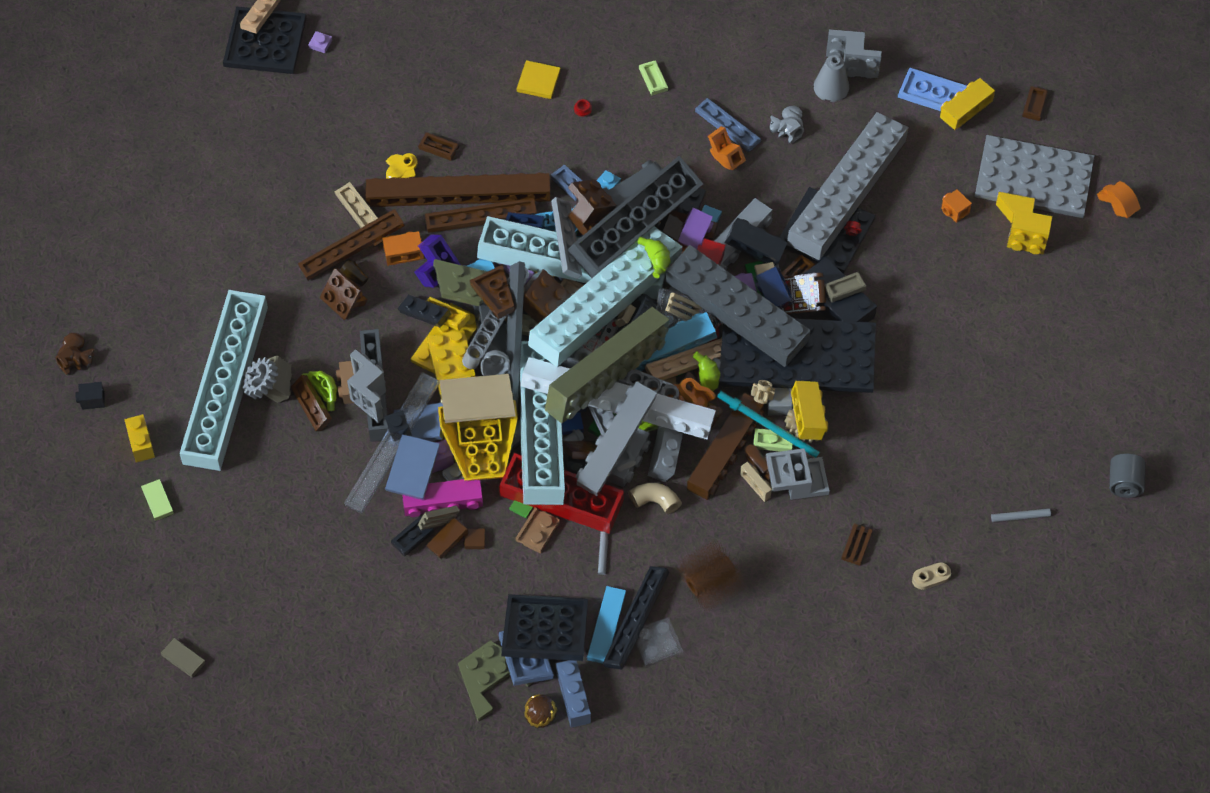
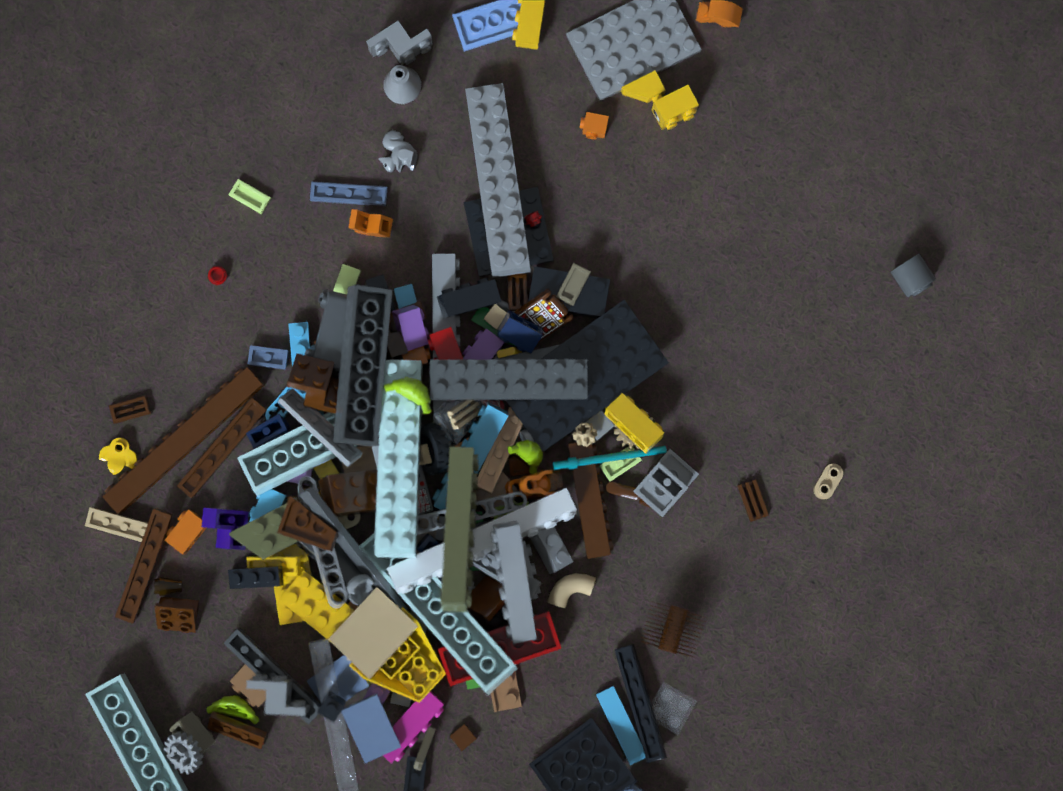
camera: 40 degrees left, 25 degrees up
(447, 538) = (443, 756): reddish brown tile -> none
(538, 79) = (156, 276): yellow tile -> none
(603, 553) = (569, 667): light grey bar -> none
(753, 478) = (645, 512): tan plate -> none
(1020, 515) = (854, 372): light grey bar -> none

